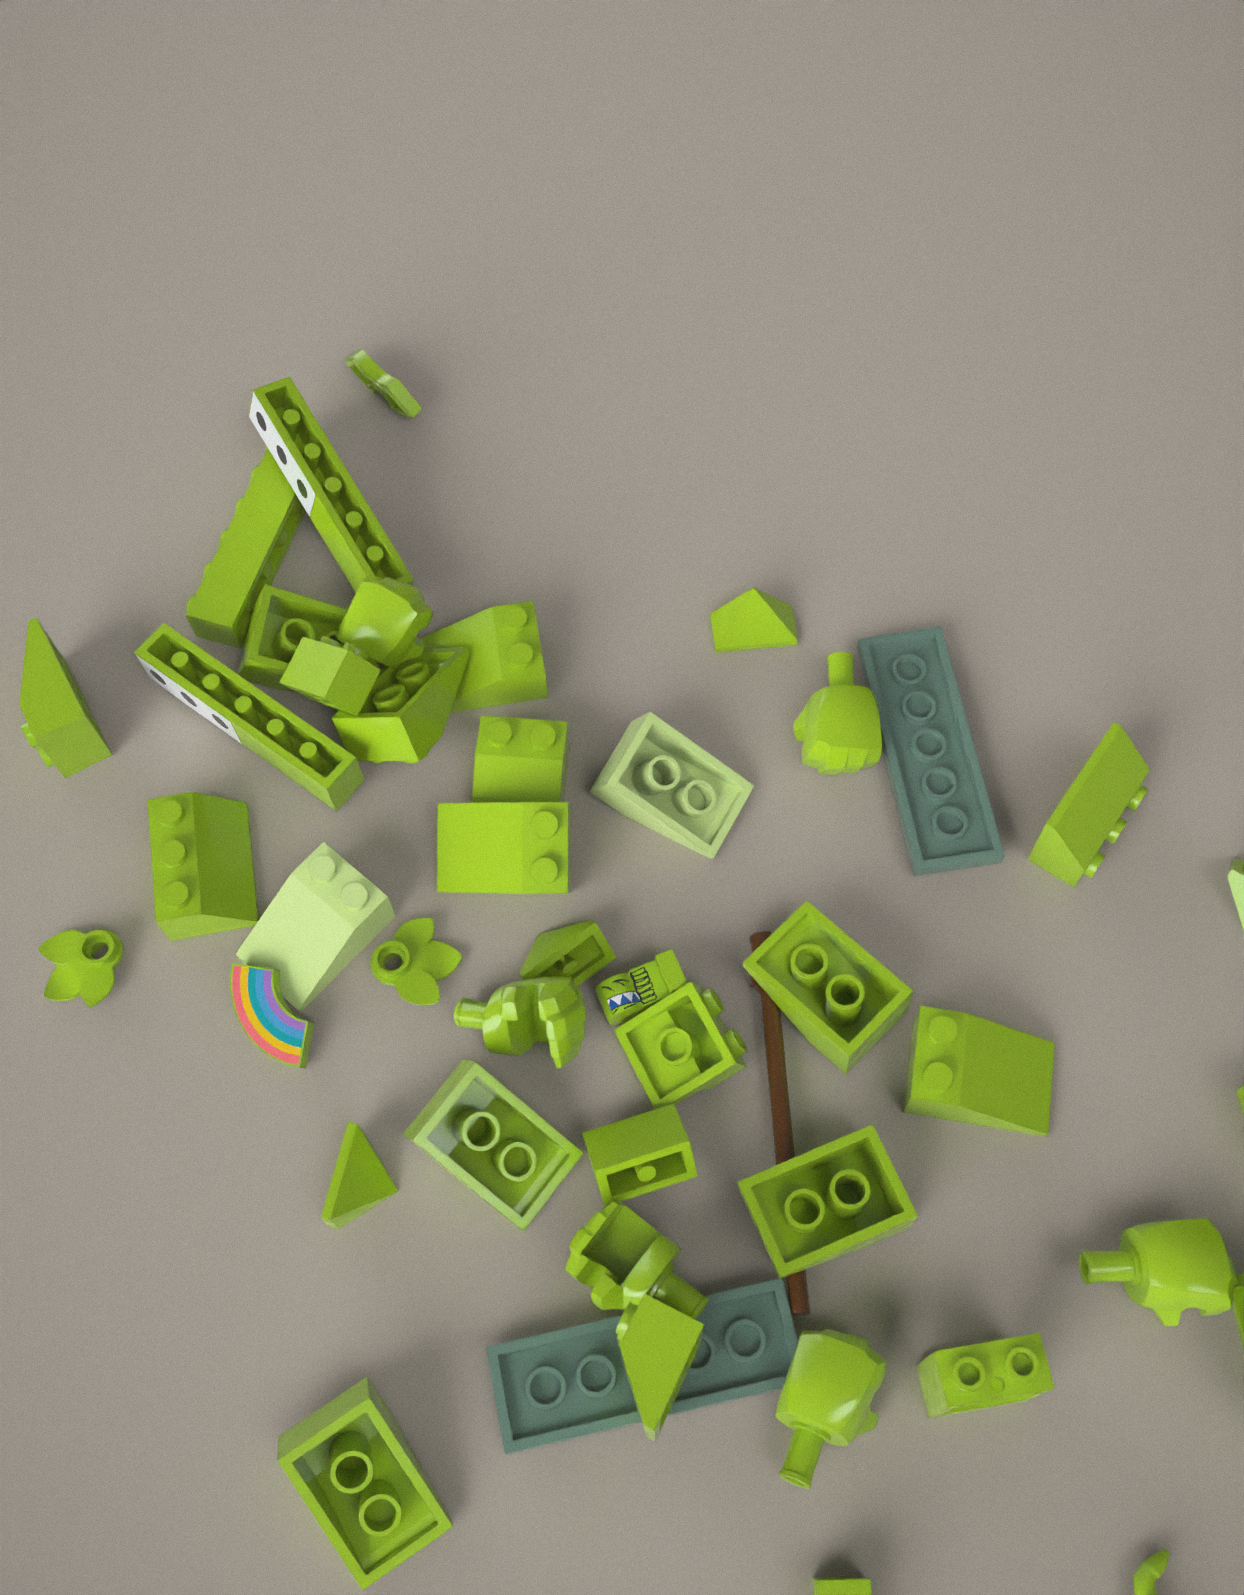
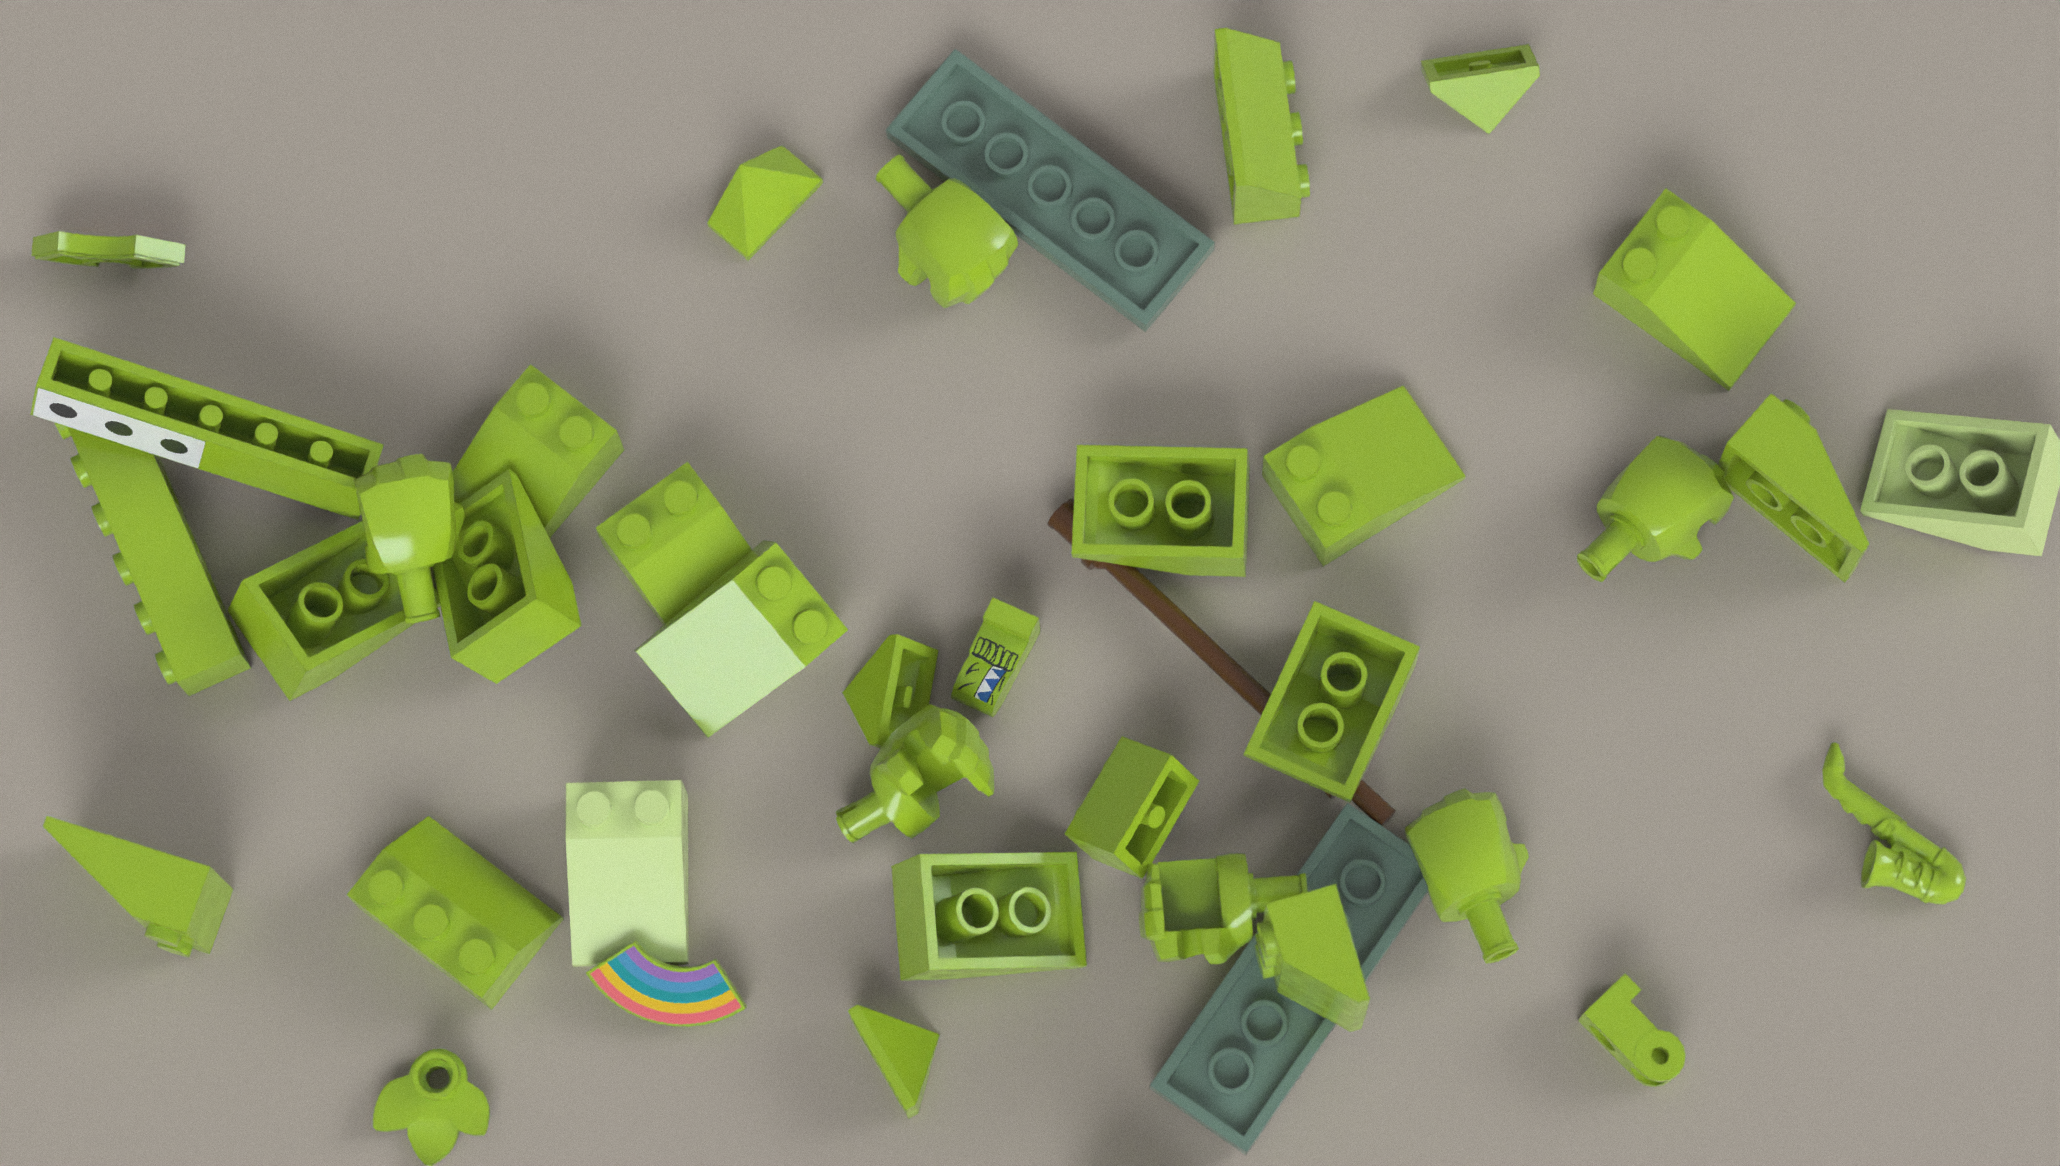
camera: 40 degrees left, 10 degrees up
(250, 716) = (350, 727): lime brick -> none
(331, 674) = (412, 615): lime brick -> none
(422, 962) = (758, 812): lime plate -> none
(672, 786) = (839, 438): yellowish green slope -> none
(682, 1045) = (1079, 679): lime plate -> none
(984, 1375) = (1582, 732): lime window -> none

